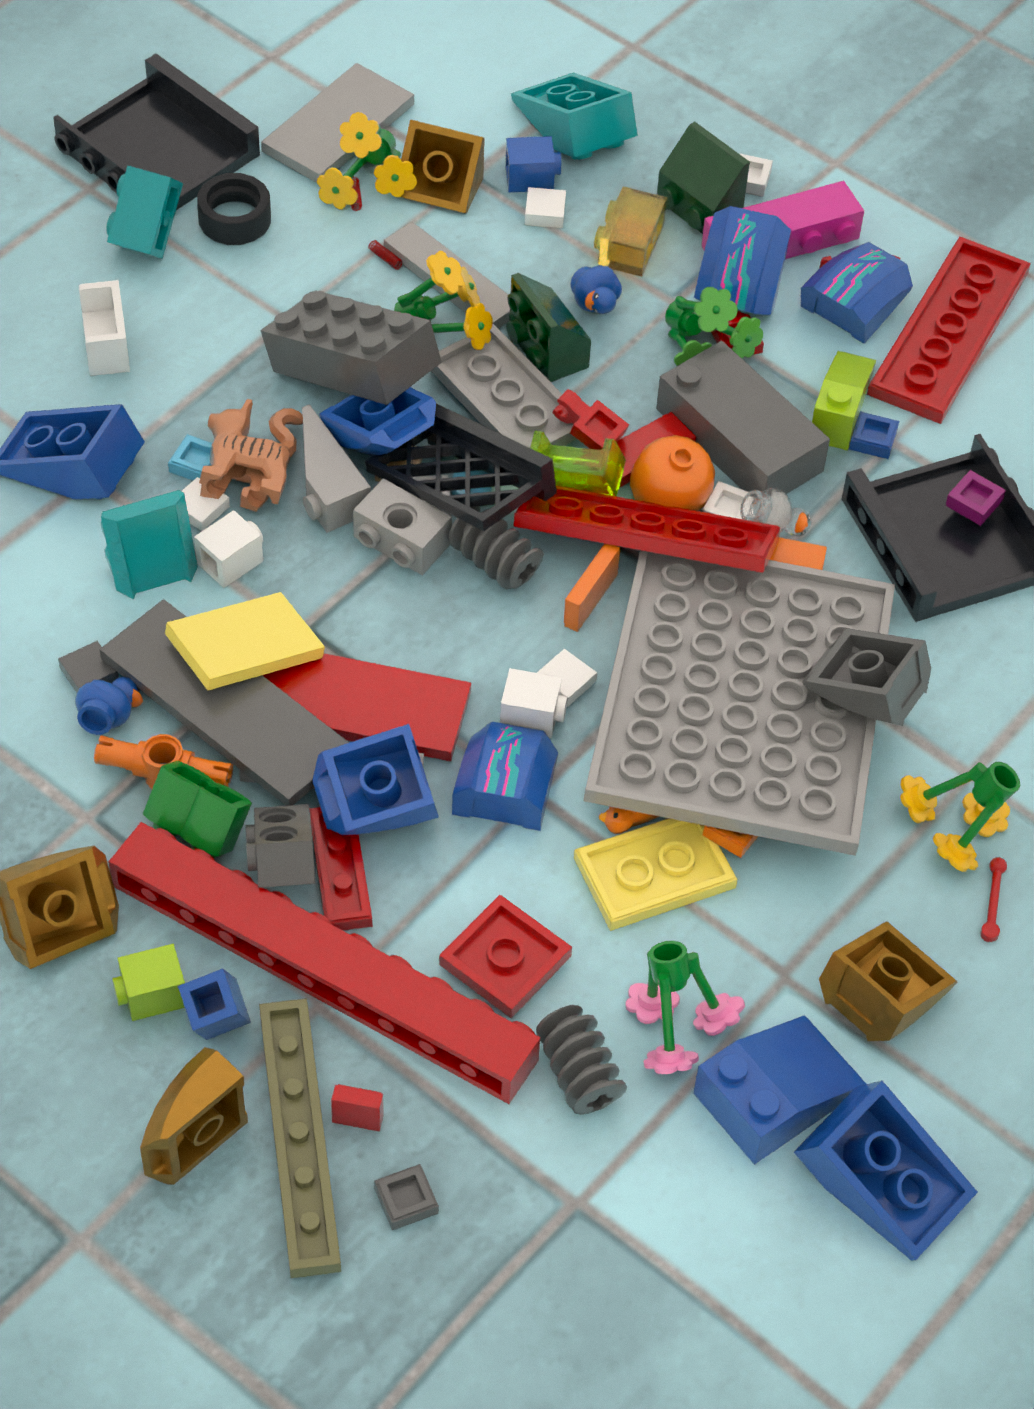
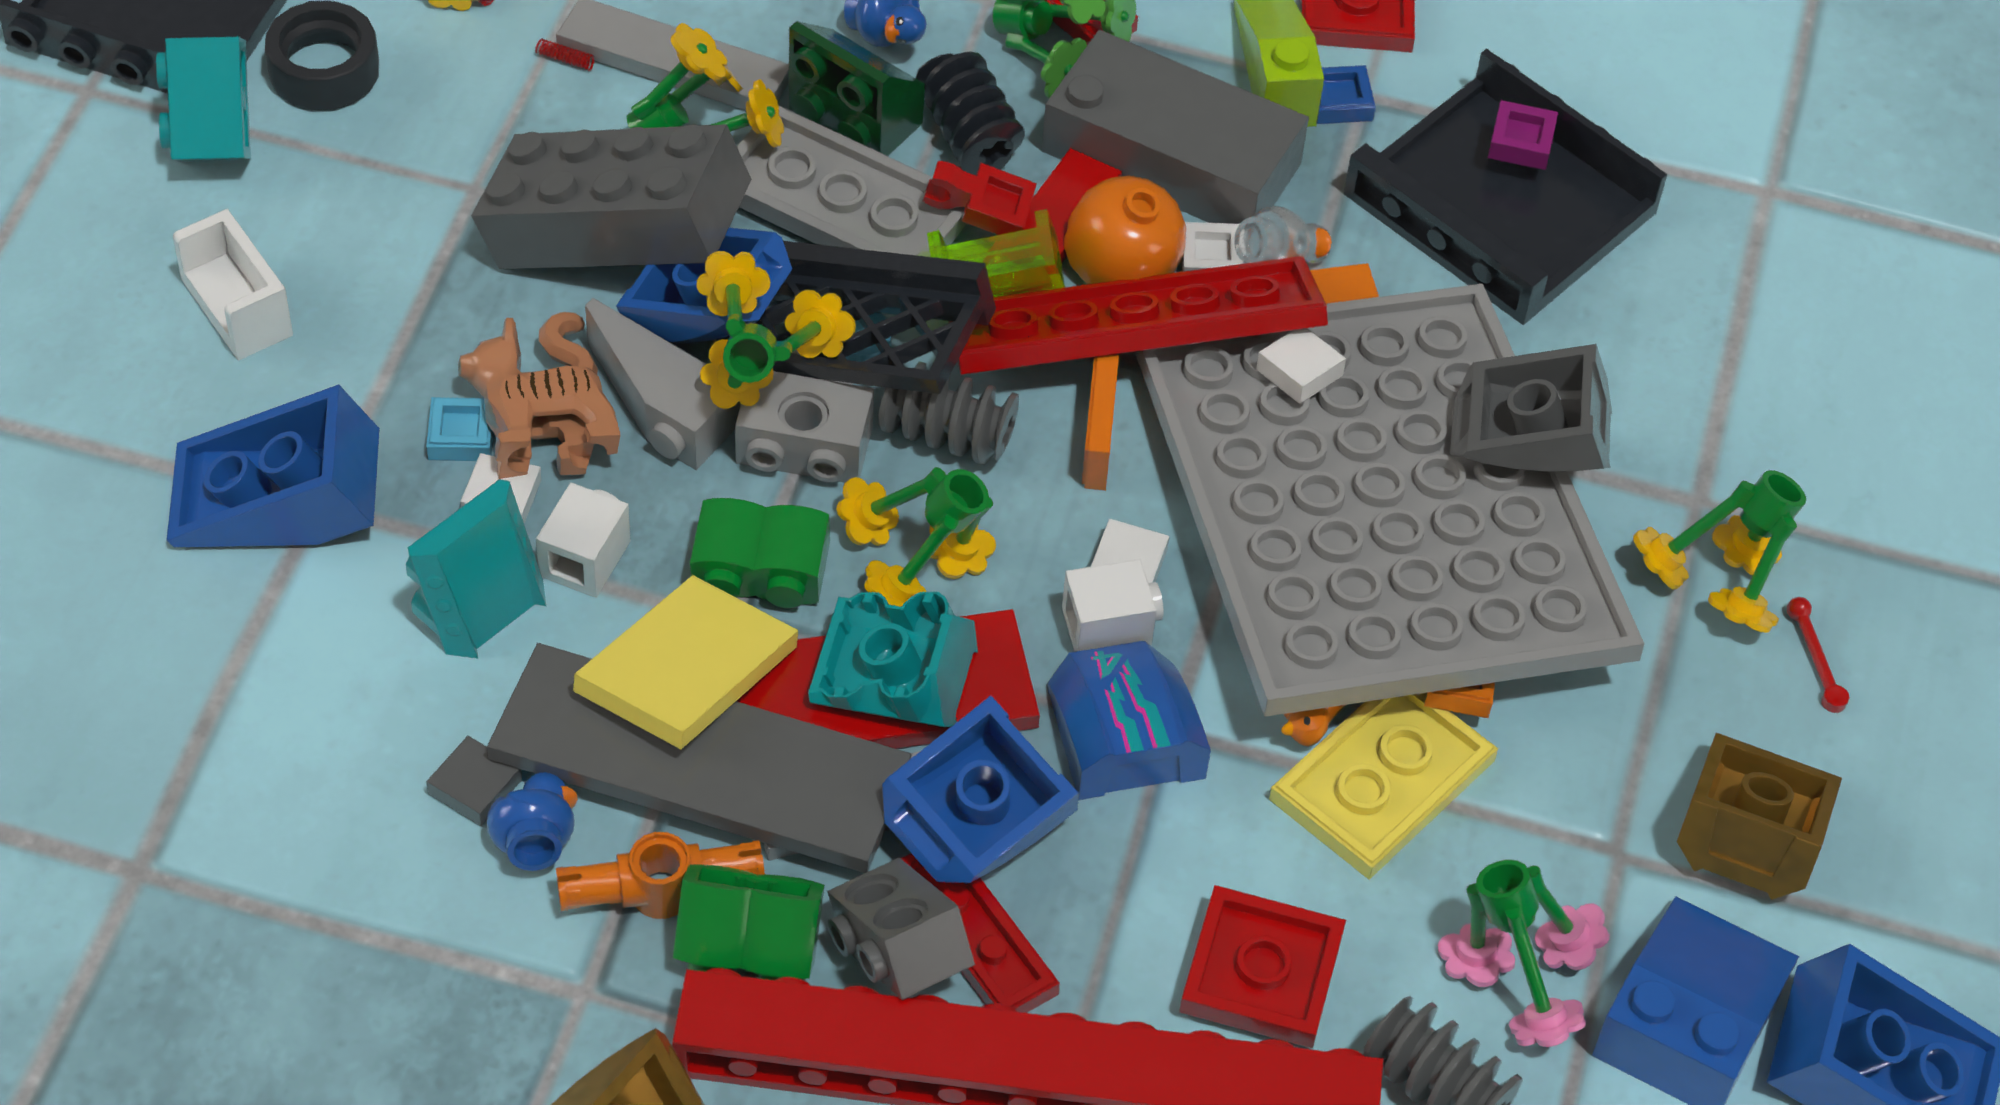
camera: 25 degrees left, 0 degrees up
(333, 593) = (762, 550): none -> green brick
(365, 464) = (748, 356): none -> yellow plant
(376, 685) = (895, 658): none -> teal slope
(453, 602) = (953, 511): none -> plant
(616, 367) = (970, 110): none -> black piece
(736, 592) = (1300, 364): none -> white tile

